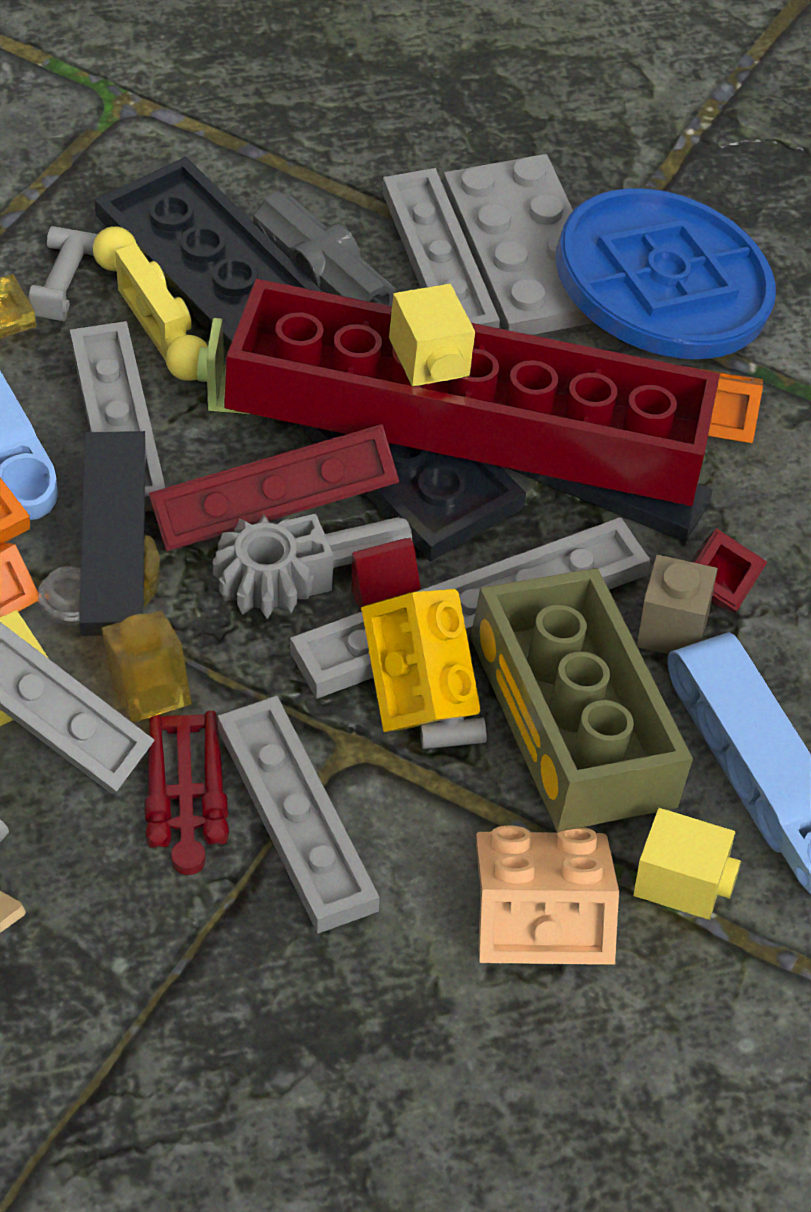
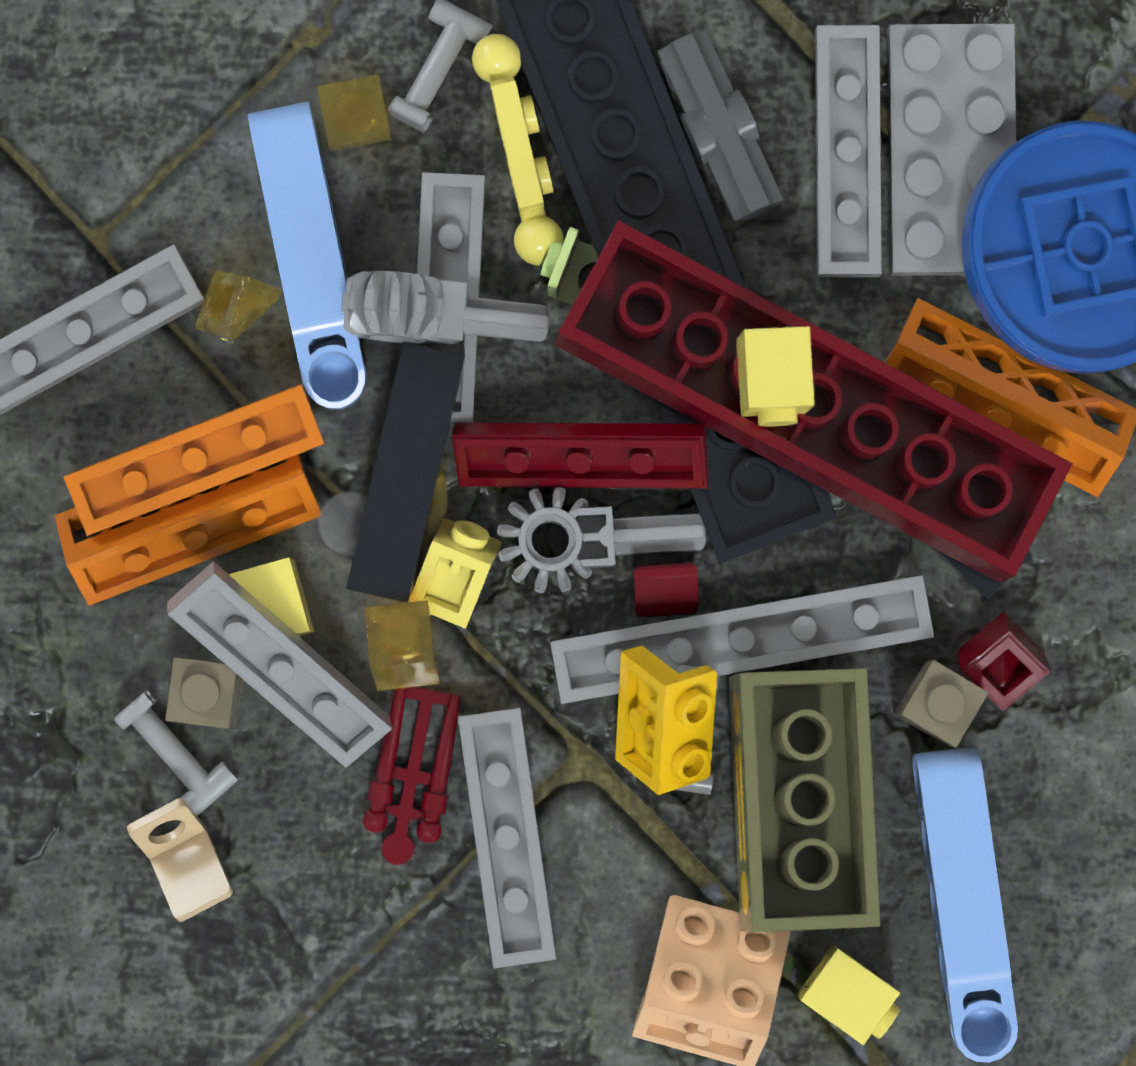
camera: 20 degrees right, 35 degrees up
(92, 395) = (433, 311): none -> light grey gear
(187, 602) = (455, 570): none -> light yellow bracket

